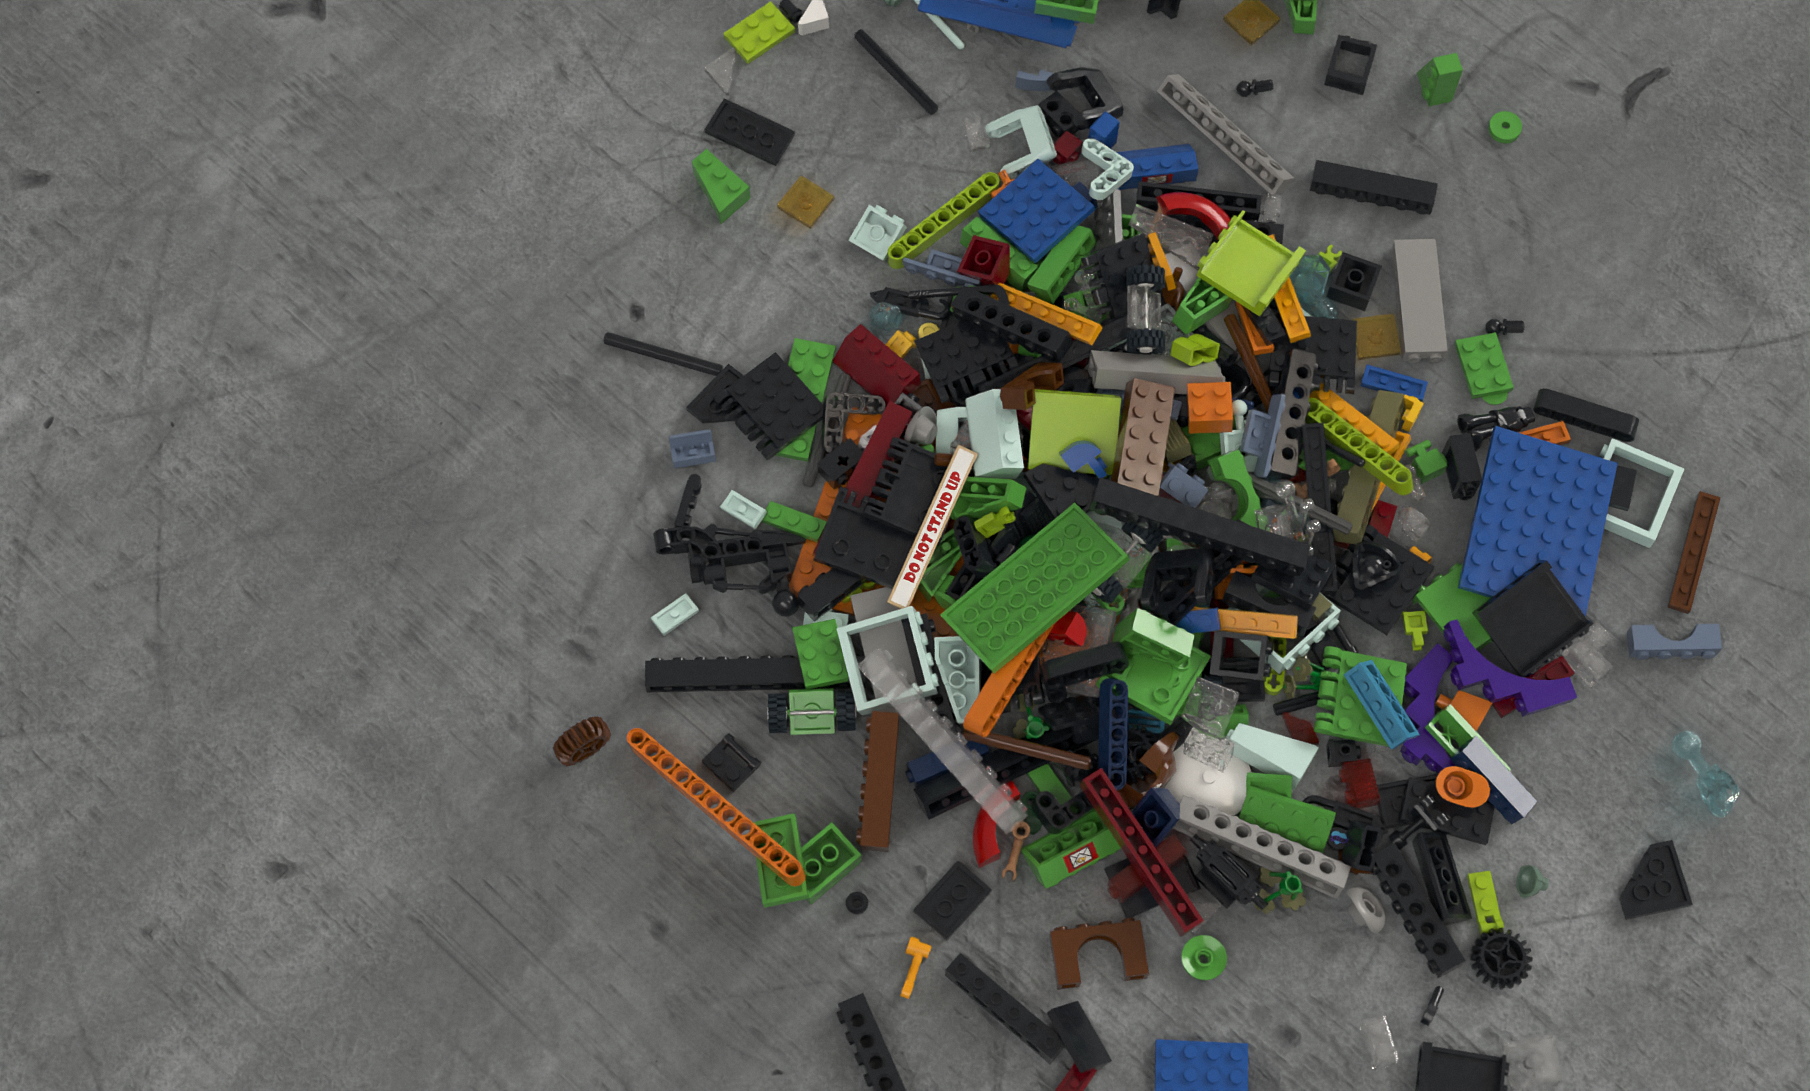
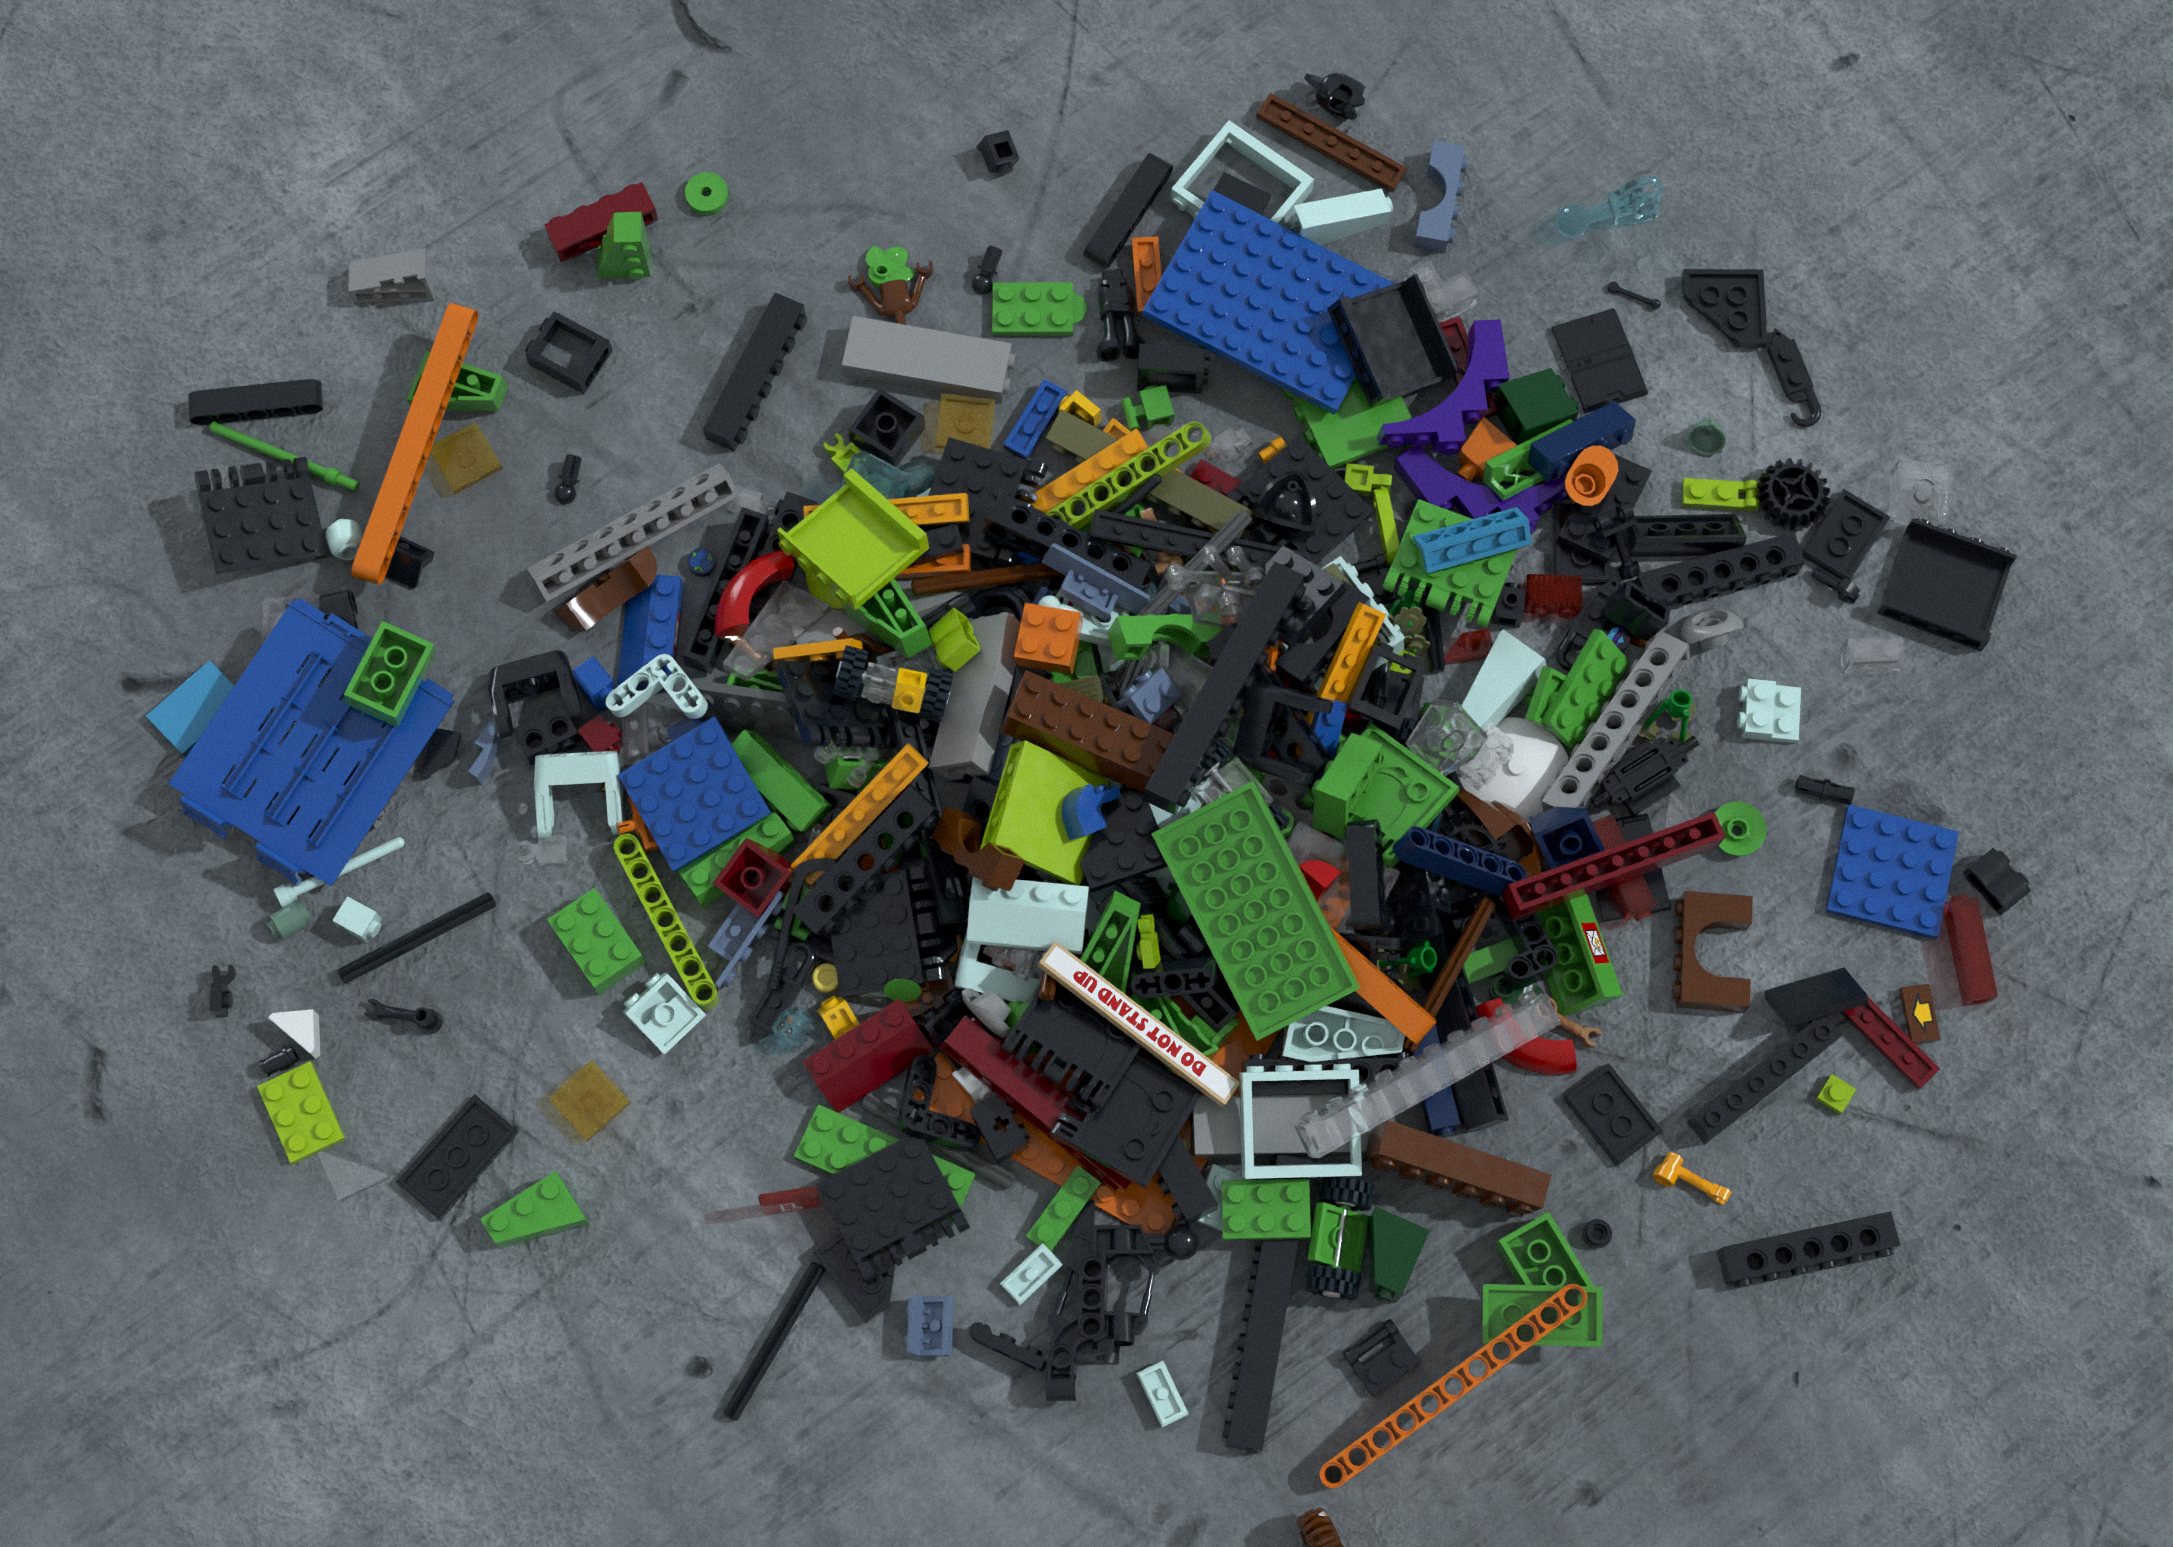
camera: 80 degrees left, 5 degrees up
(759, 335) = (790, 1200): none -> clear red tile
(806, 750) = (1392, 1253): none -> dark green slope
(839, 90) = (426, 1019): none -> black brick
(898, 31) = (357, 920): none -> light aqua brick
(918, 179) = (596, 941): none -> bright green brick
(927, 377) = (903, 989): none -> bright green sticker
(1007, 1069) = (1835, 1094): none -> lime plate
(1032, 55) = (440, 751): none -> black tile
(1141, 315) = (909, 690): none -> yellow bracket
(1181, 133) = (613, 590): none -> reddish brown brick
(1217, 183) = (701, 562): none -> tile
(1255, 1023) = (1824, 789): none -> black pin
(1310, 969) = (1769, 711): none -> light aqua plate
(1388, 647) = (1386, 523): none -> lime beam
(1462, 268) = (894, 295): none -> reddish brown piece
(1475, 77) = (587, 224): none -> dark red brick
(1479, 1009) = (1845, 536): none -> black tile
(1487, 260) = (888, 265): none -> bright green plate
(1516, 740) = (1534, 405): none -> dark green slope
(1573, 790) = (1600, 360): none -> black piece
(1606, 946) = (1793, 376): none -> black plate
(1609, 311) = (999, 152): none -> black brick
(1629, 566) = (1341, 216): none -> light aqua slope
(1640, 791) = (1613, 287): none -> black hinge
(1735, 545) = (1338, 94): none -> black piece

